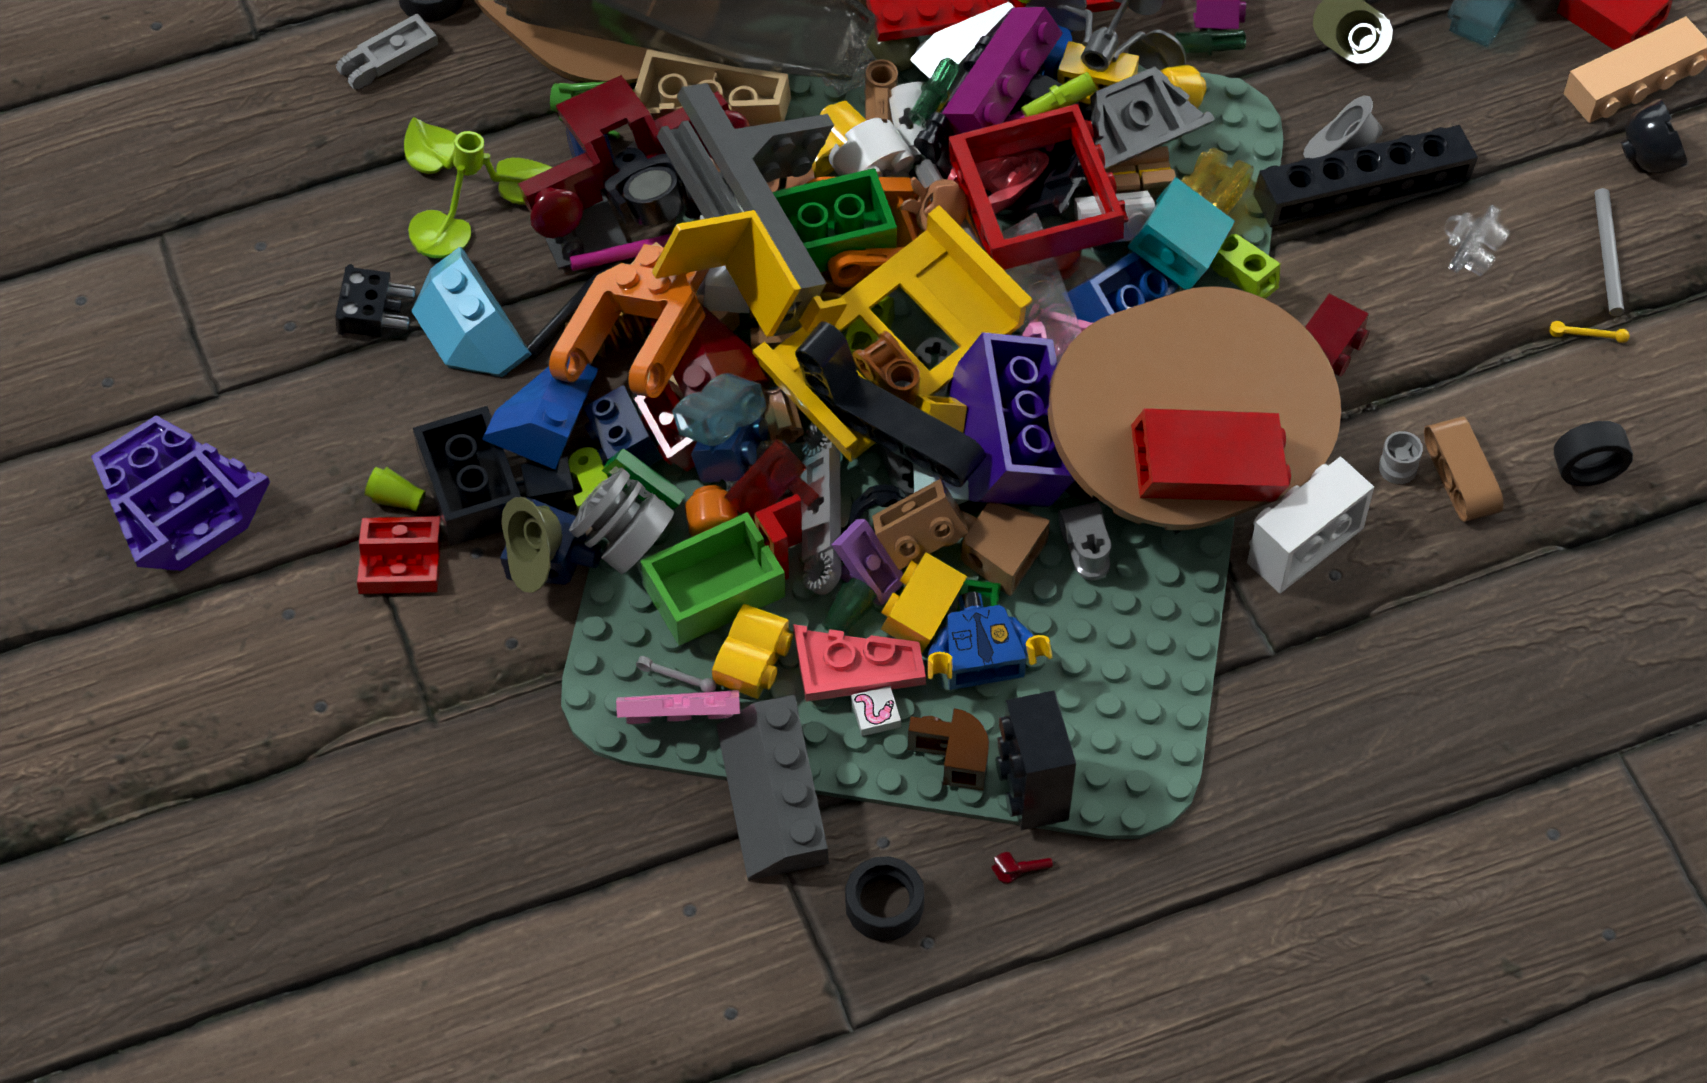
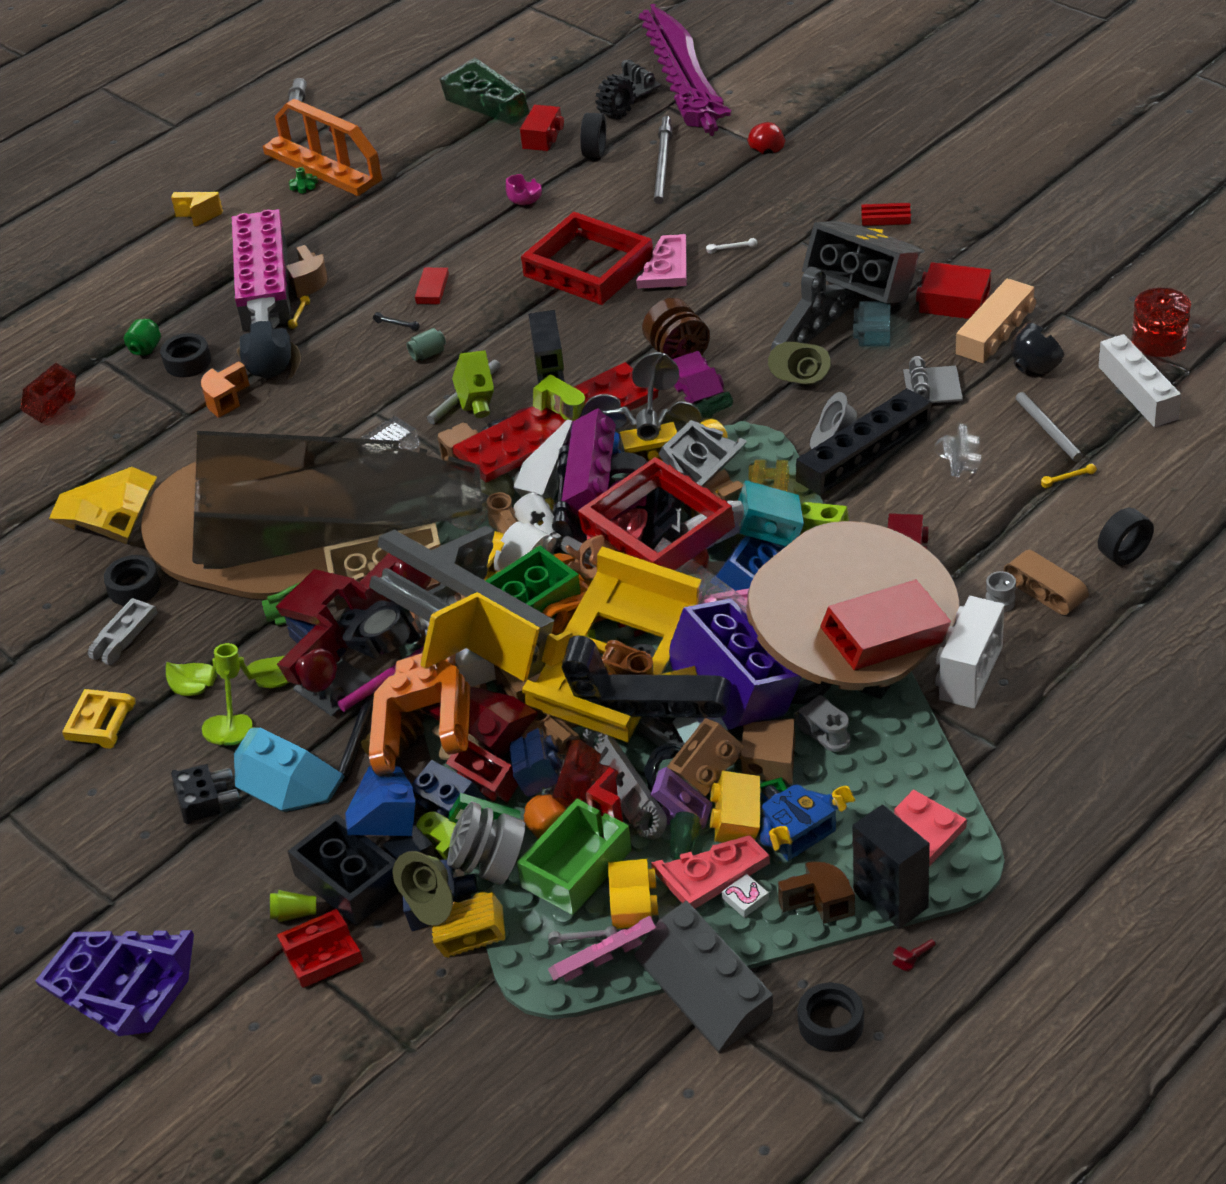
camera: 20 degrees left, 15 degrees down
(300, 148) = (90, 714): none -> yellow plate
(564, 606) = (470, 925): none -> yellow brick
(719, 409) = (519, 736): clear light blue brick -> none
(934, 91) = (547, 492): clear green axle -> none
(1061, 96) = (641, 456): lime pin -> none
(1128, 721) = (931, 821): none -> coral wing
(1504, 126) = (933, 383): none -> light grey hinge

